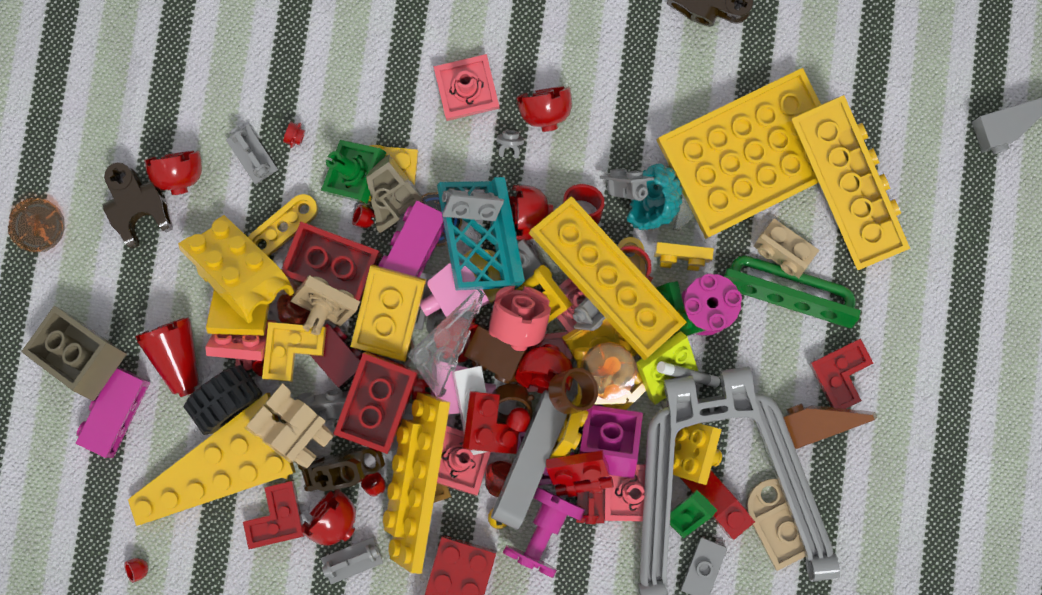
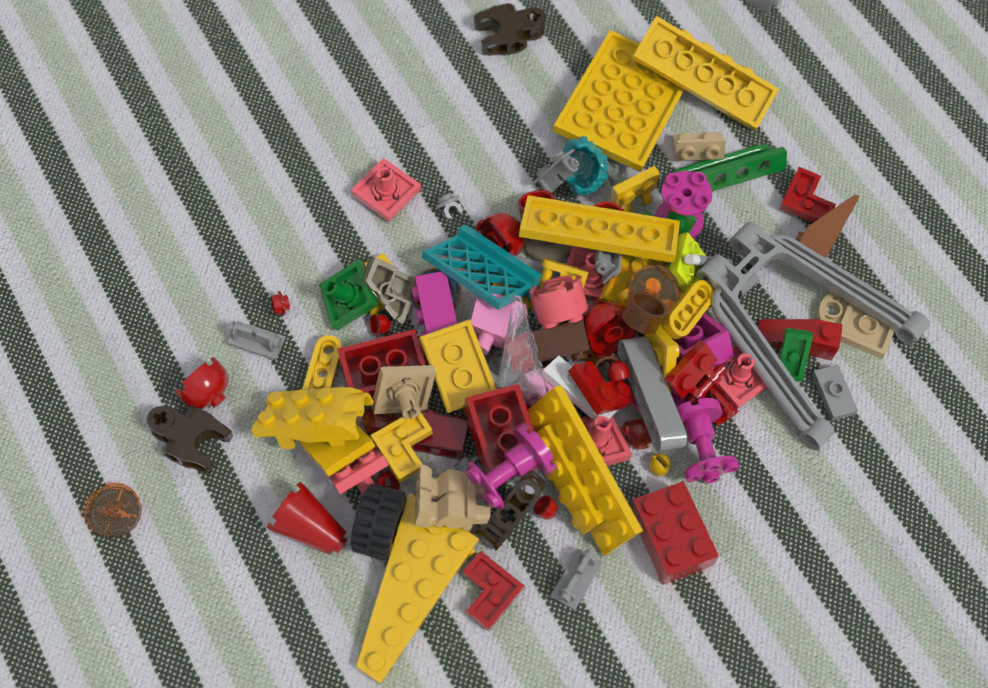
camera: 45 degrees left, 20 degrees down
(73, 353) = (224, 573): dark tan brick -> none
(112, 413) = (289, 606): dark pink brick -> none
(331, 519) = (536, 554): red cylinder -> none
(356, 446) = (519, 460): none -> dark pink piece
(477, 206) = (460, 249): light grey hinge -> none
(546, 107) = (456, 163): red cylinder -> none
(635, 411) = (688, 309): none -> yellow plate
(696, 452) = (762, 305): yellow plate -> none

